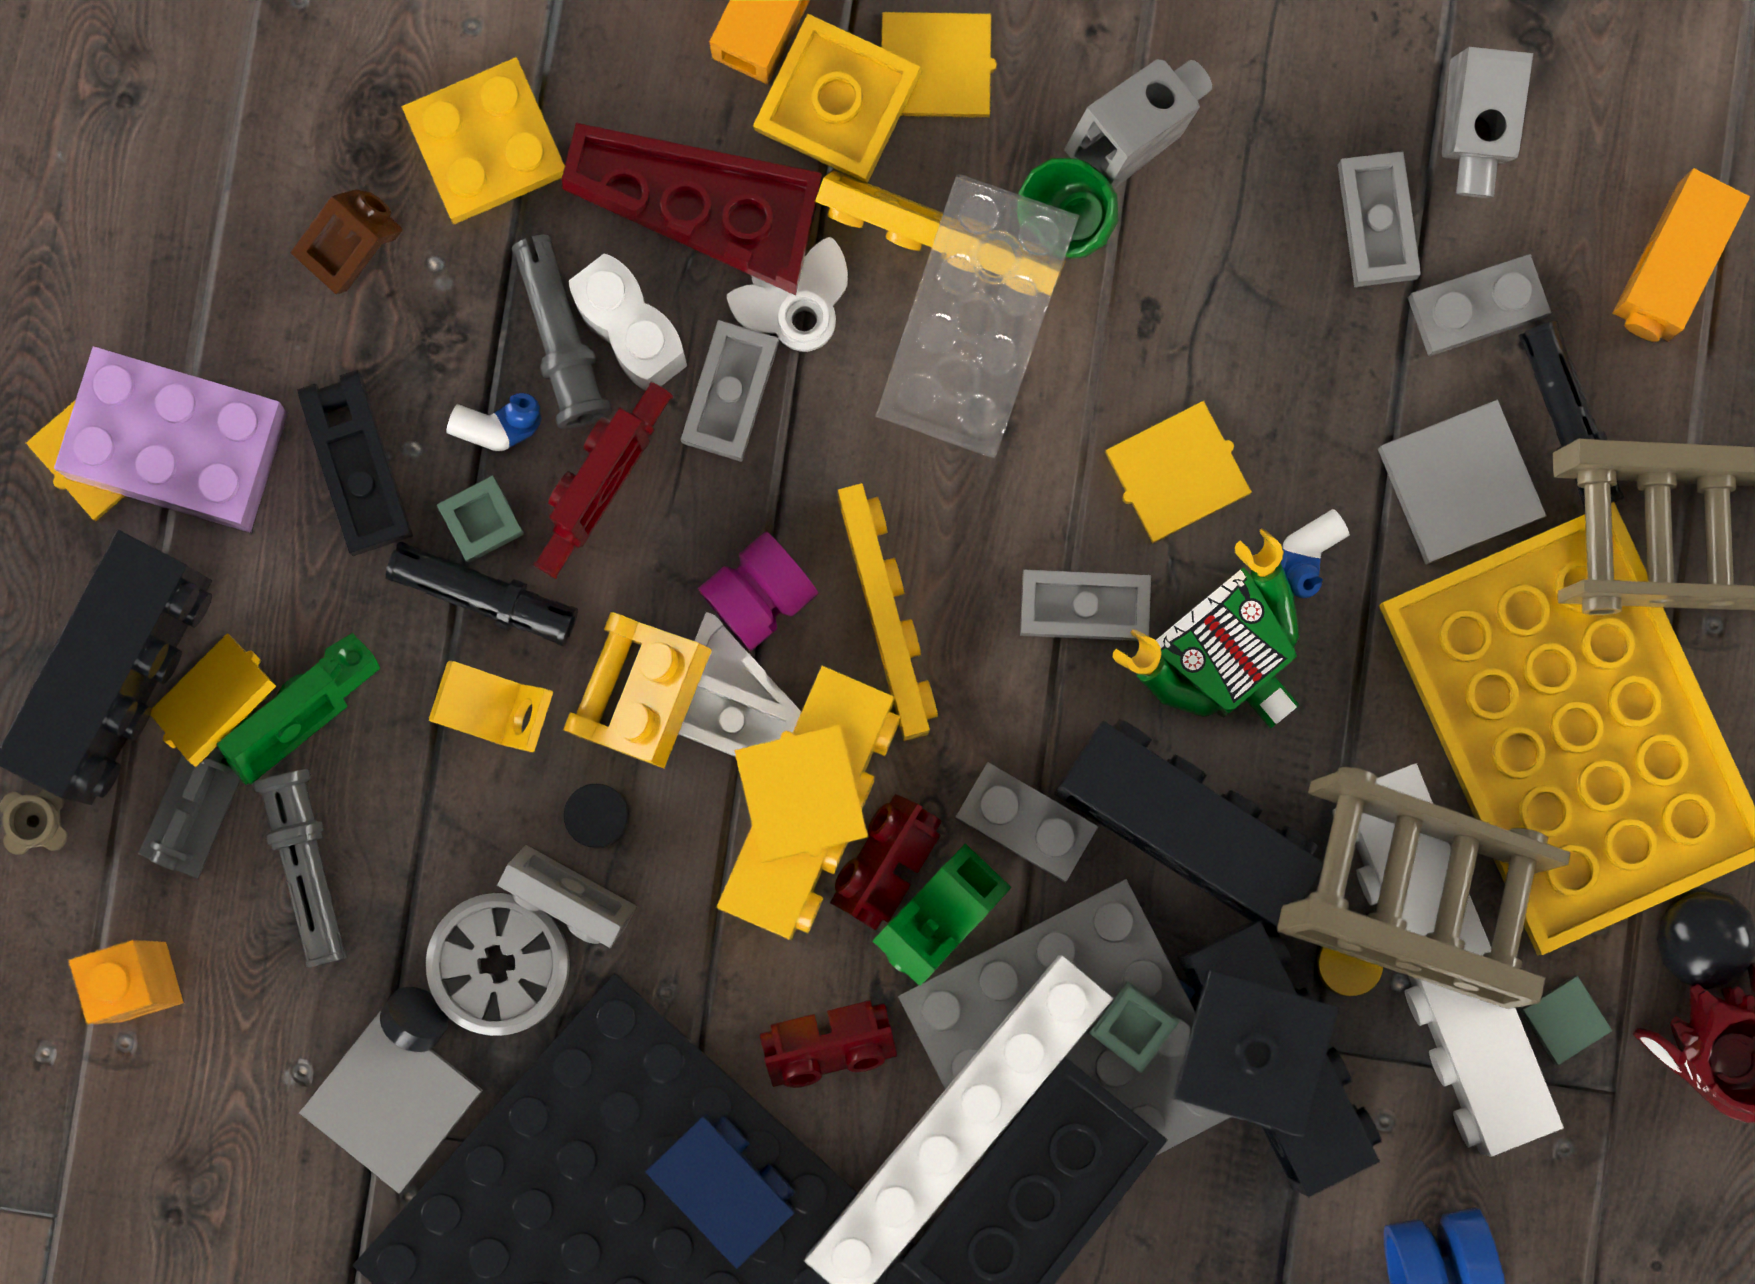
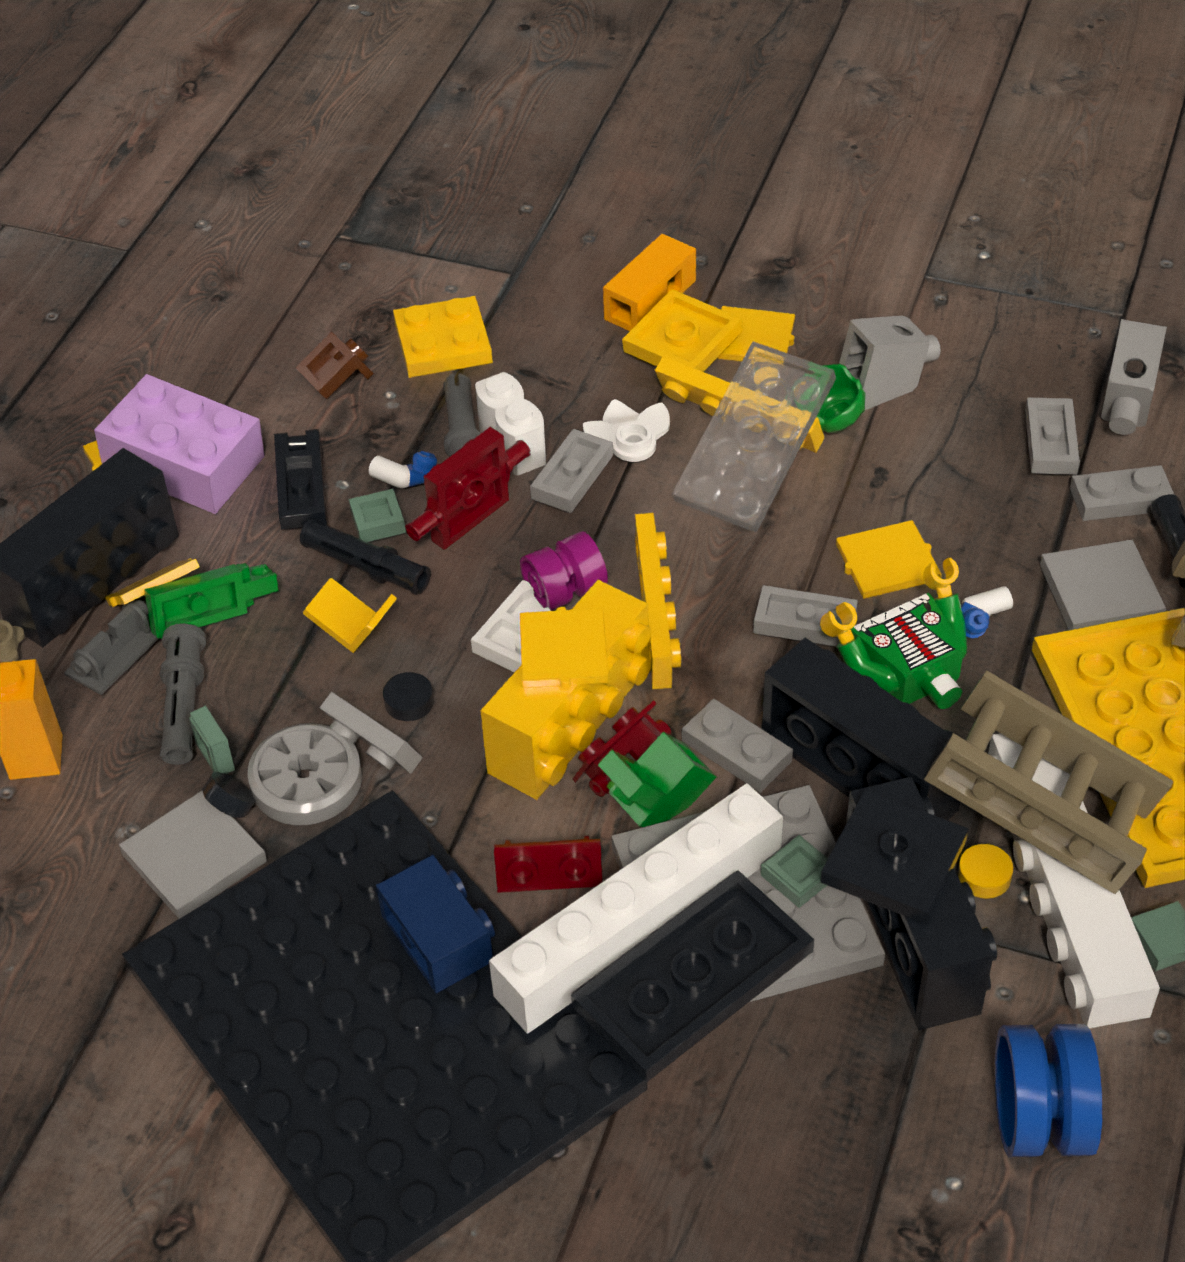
camera: 15 degrees right, 35 degrees down
(368, 942) = (211, 741): none -> sand green tile
(653, 696) = (460, 619): yellow plate -> none
(709, 200) = (587, 374): dark red wing -> none

